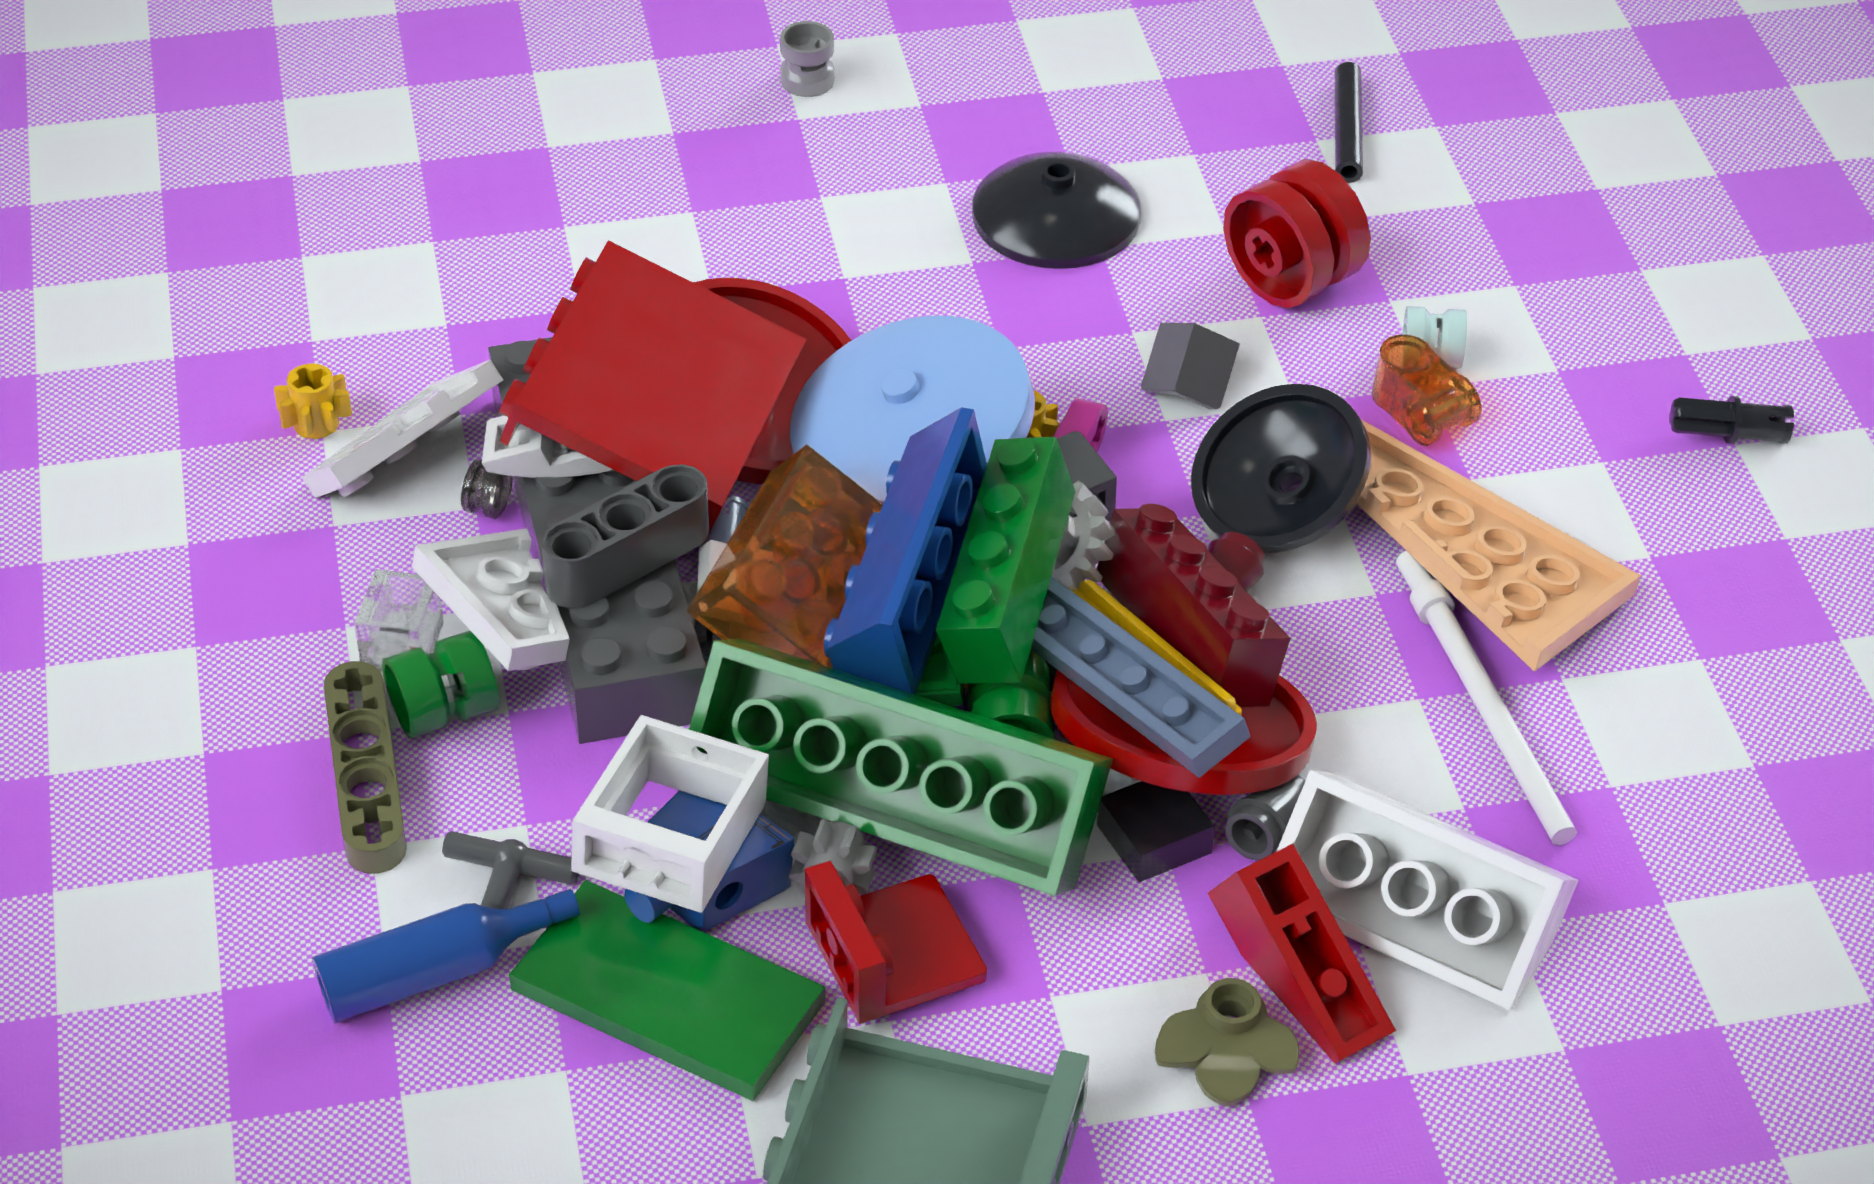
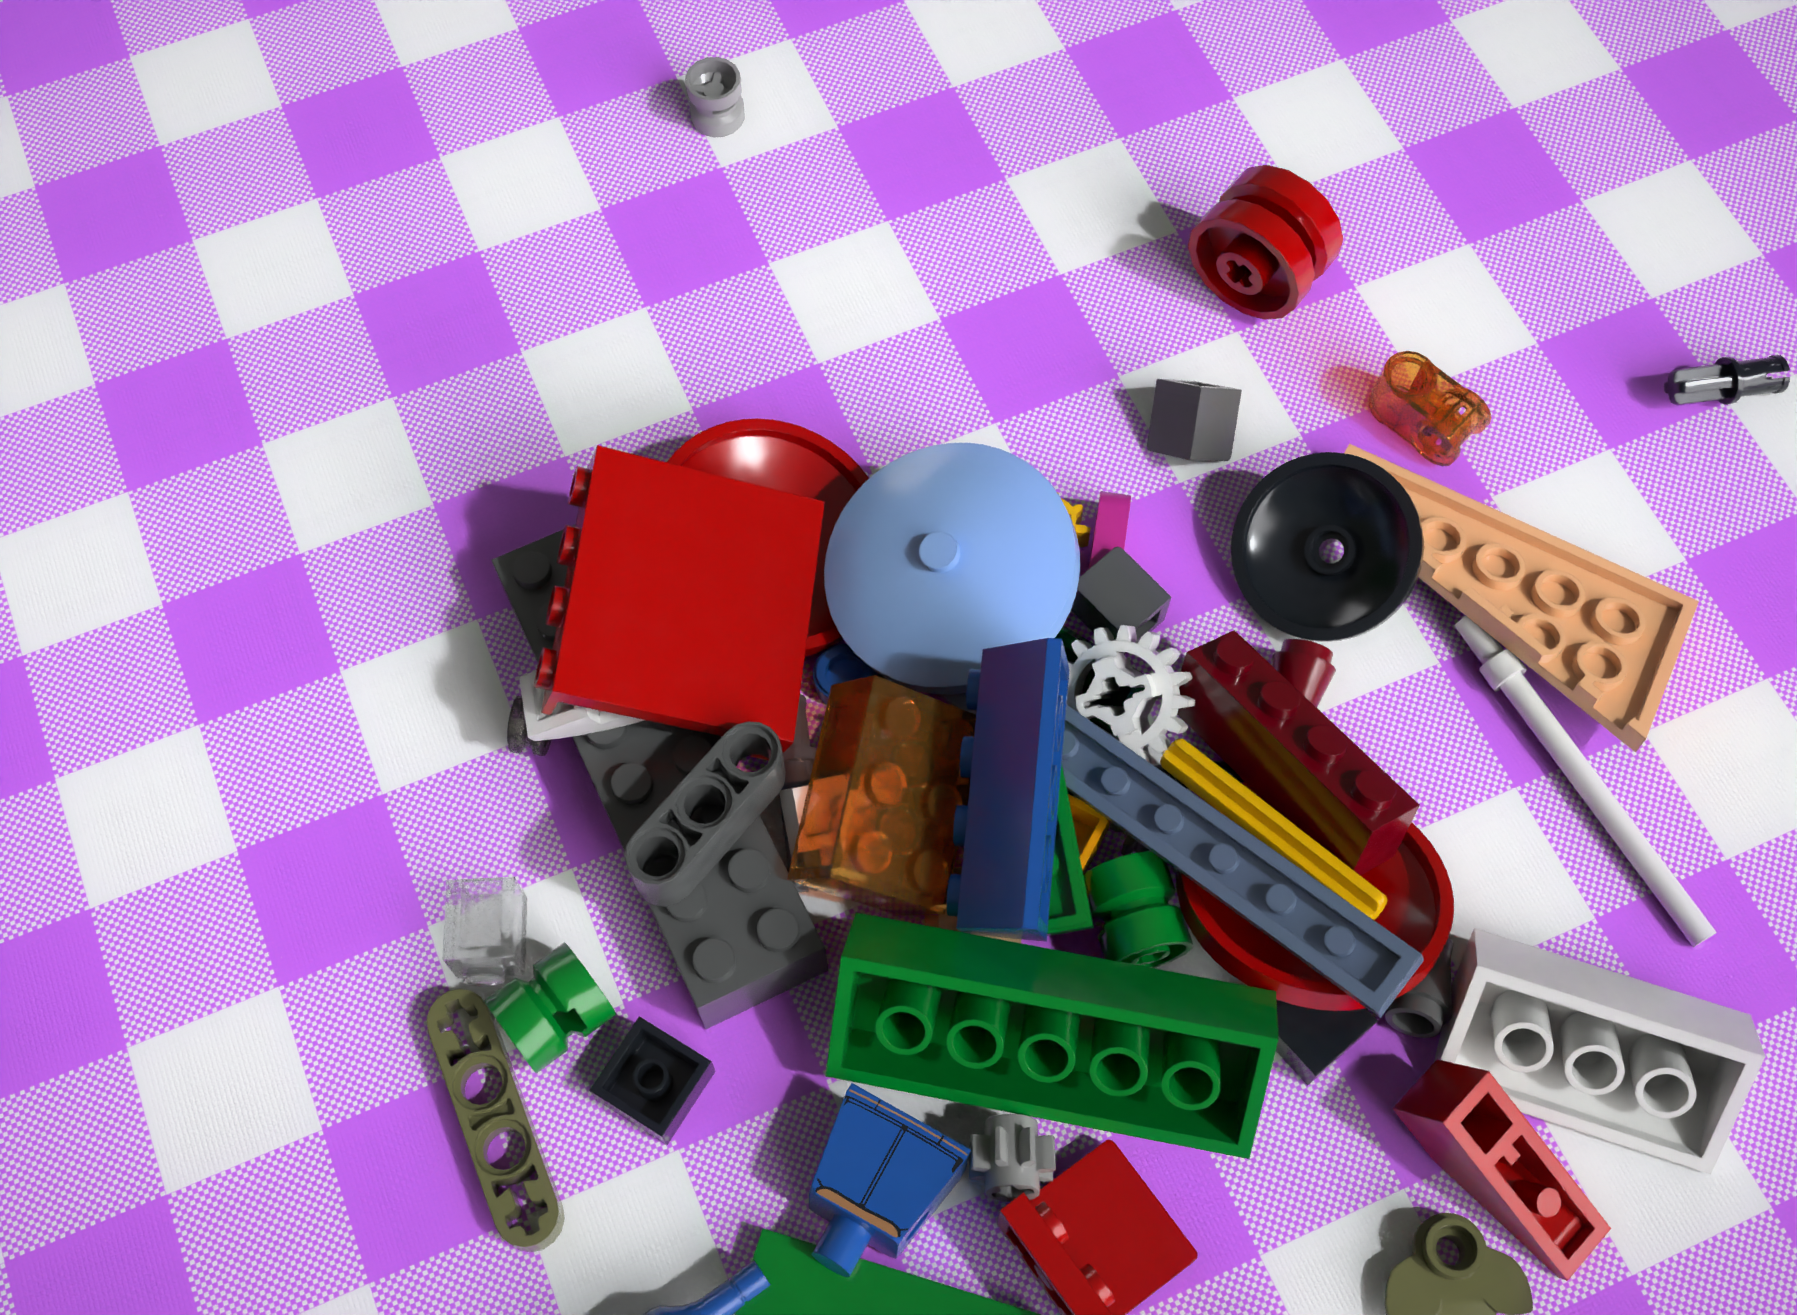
camera: 10 degrees left, 20 degrees up
(312, 401) = (306, 643): yellow gear -> none
(397, 432) = (424, 669): white wing -> none
(497, 595) = (581, 895): white wing -> none
(508, 861) = (677, 1213): dark grey piece -> none
(518, 762) = (653, 1080): none -> black piece
(654, 858) = (833, 1250): white window -> none
(1006, 561) = (1111, 770): green brick -> none
(1056, 210) = (1003, 257): black dish -> none
(1348, 121) = (1262, 73): black piece -> none
(1451, 332) = (1426, 332): light aqua wheel -> none

